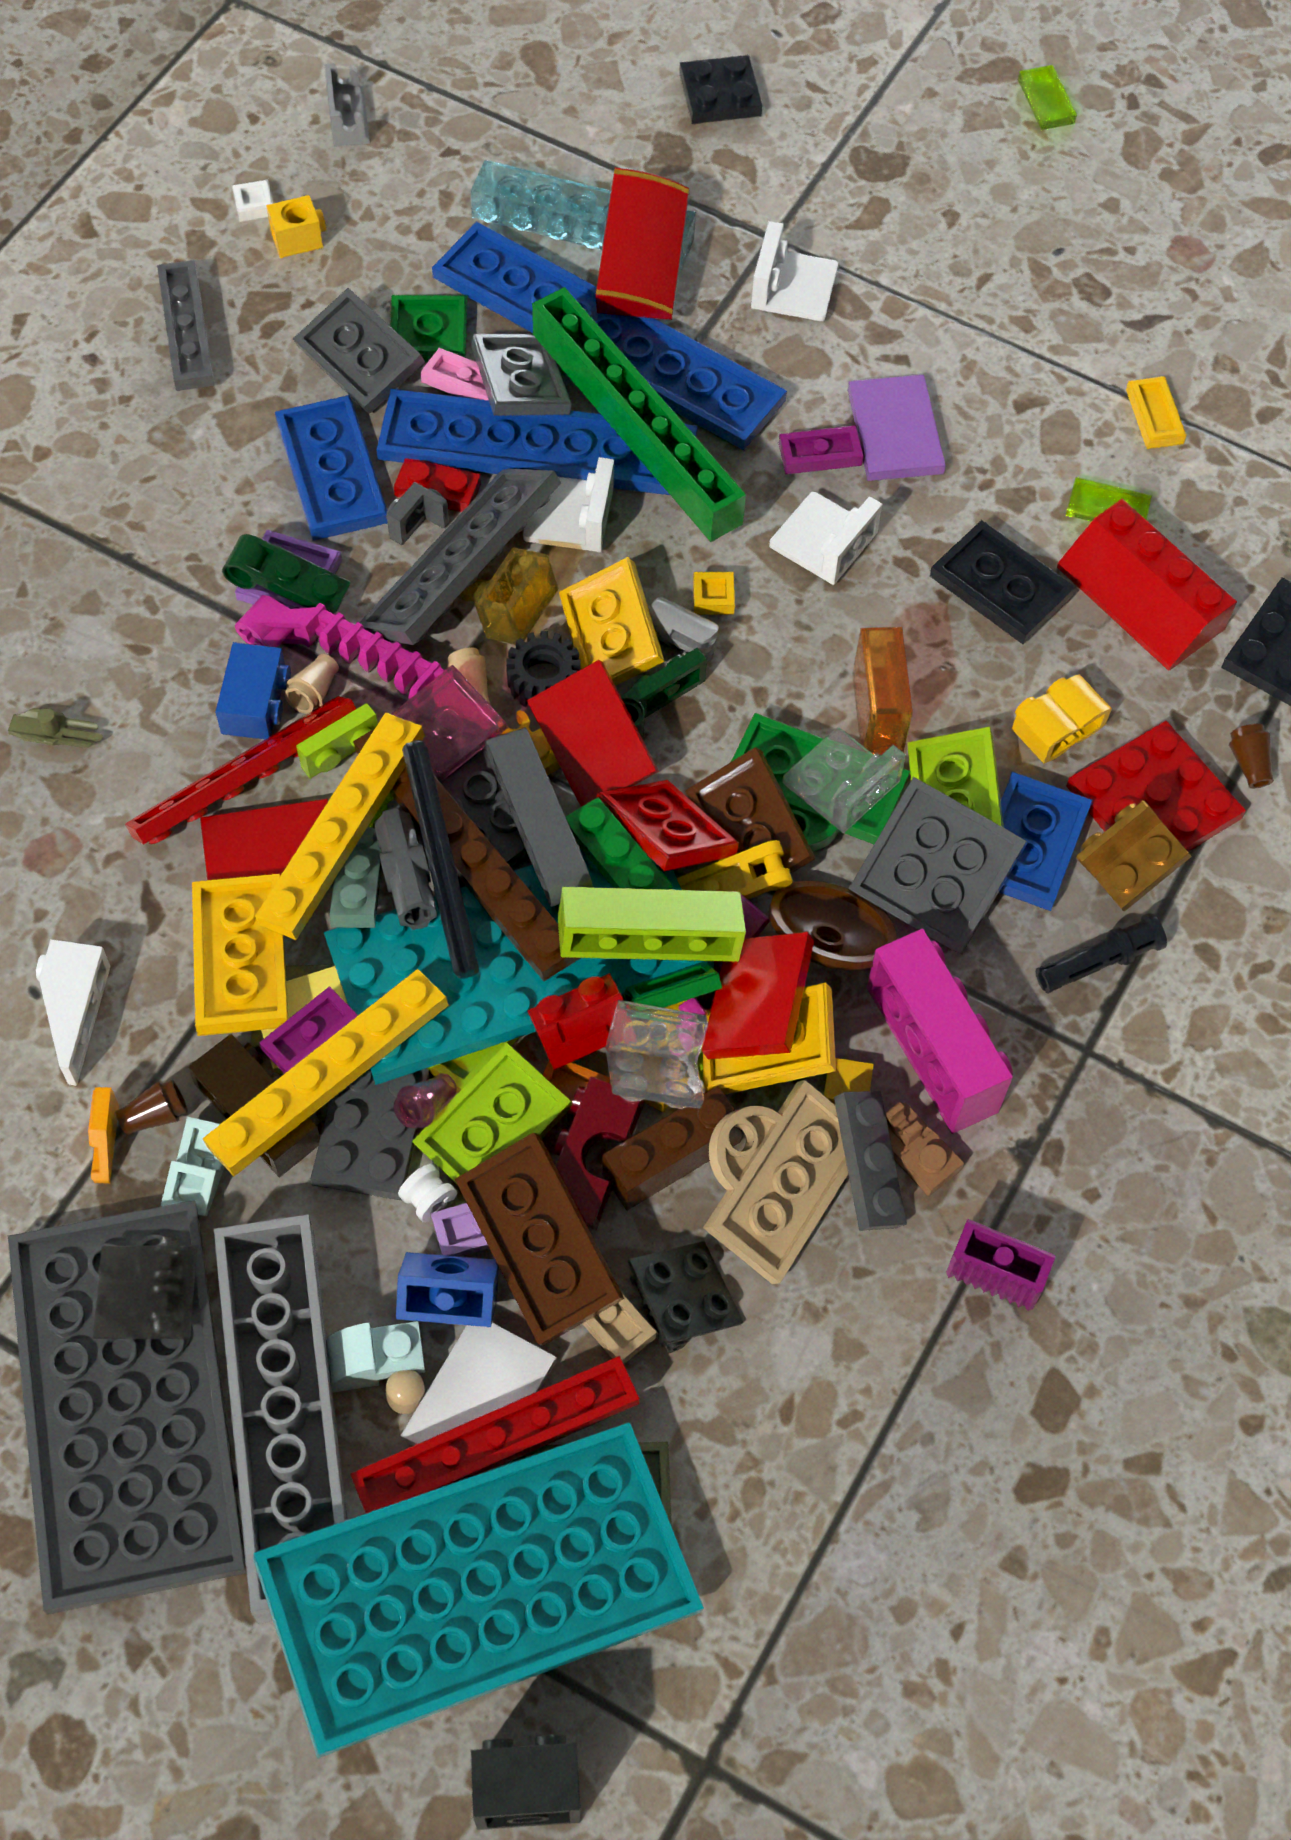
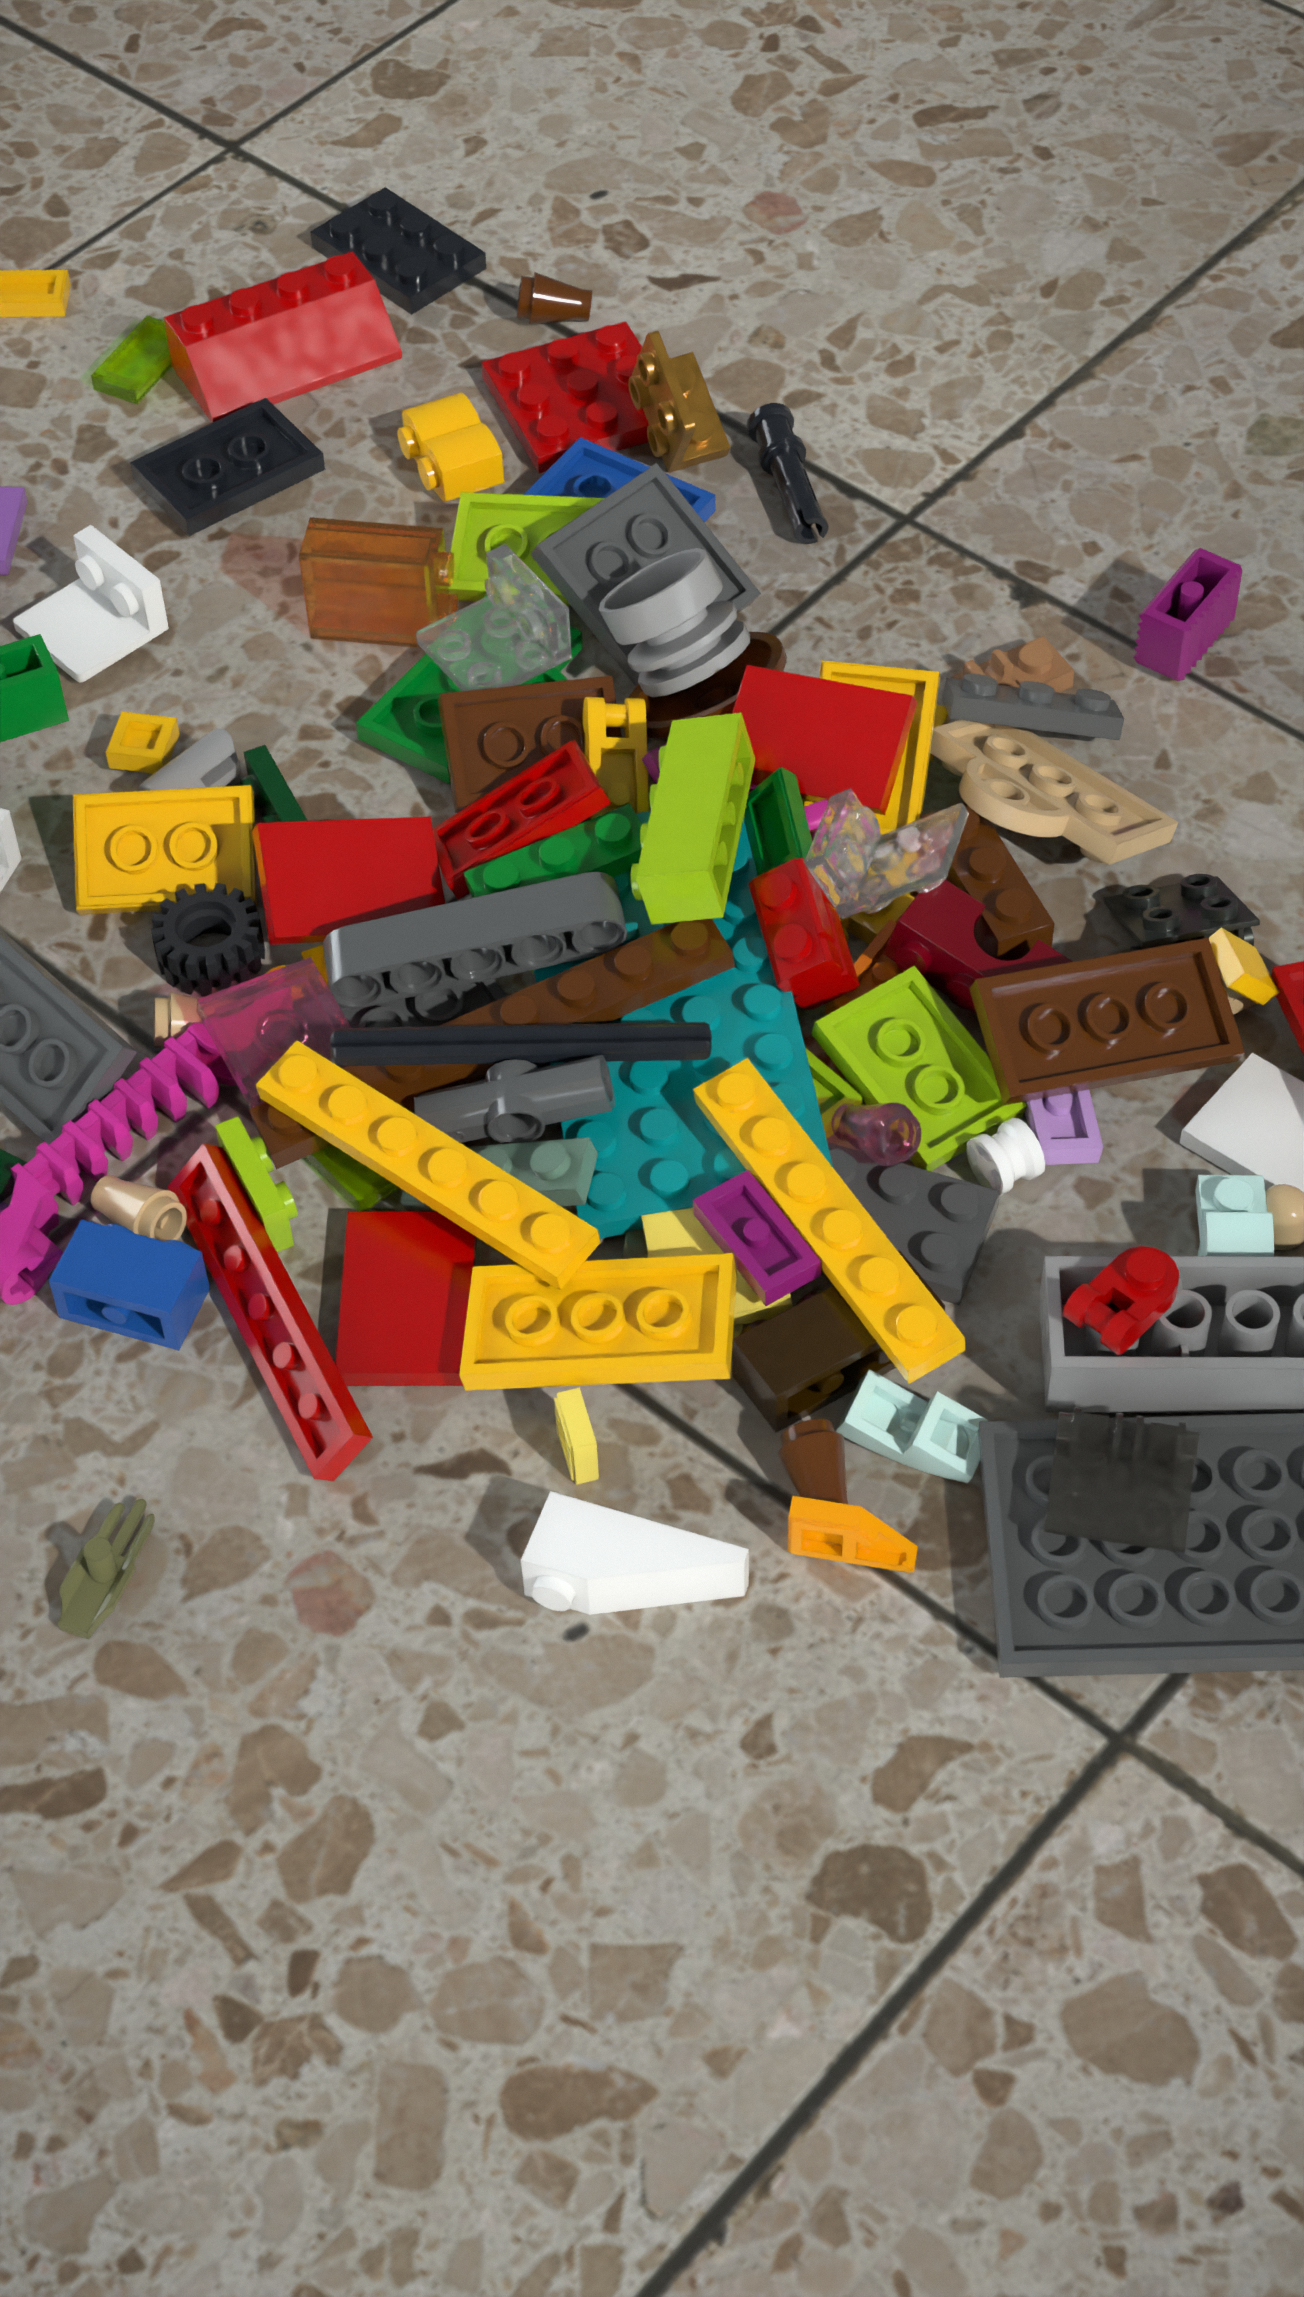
camera: 75 degrees left, 10 degrees down
(162, 961) = (576, 1436): none -> light yellow tile
(281, 1278) = (1139, 1283): none -> red plate
(447, 1289) = (1156, 1139): blue brick -> none
(514, 595) = (82, 940): clear yellow brick -> none
(612, 1331) = (1242, 967): none -> yellow tile
(863, 884) = (675, 622): none -> light grey wheel
(939, 1030) = (885, 603): dark pink brick -> none

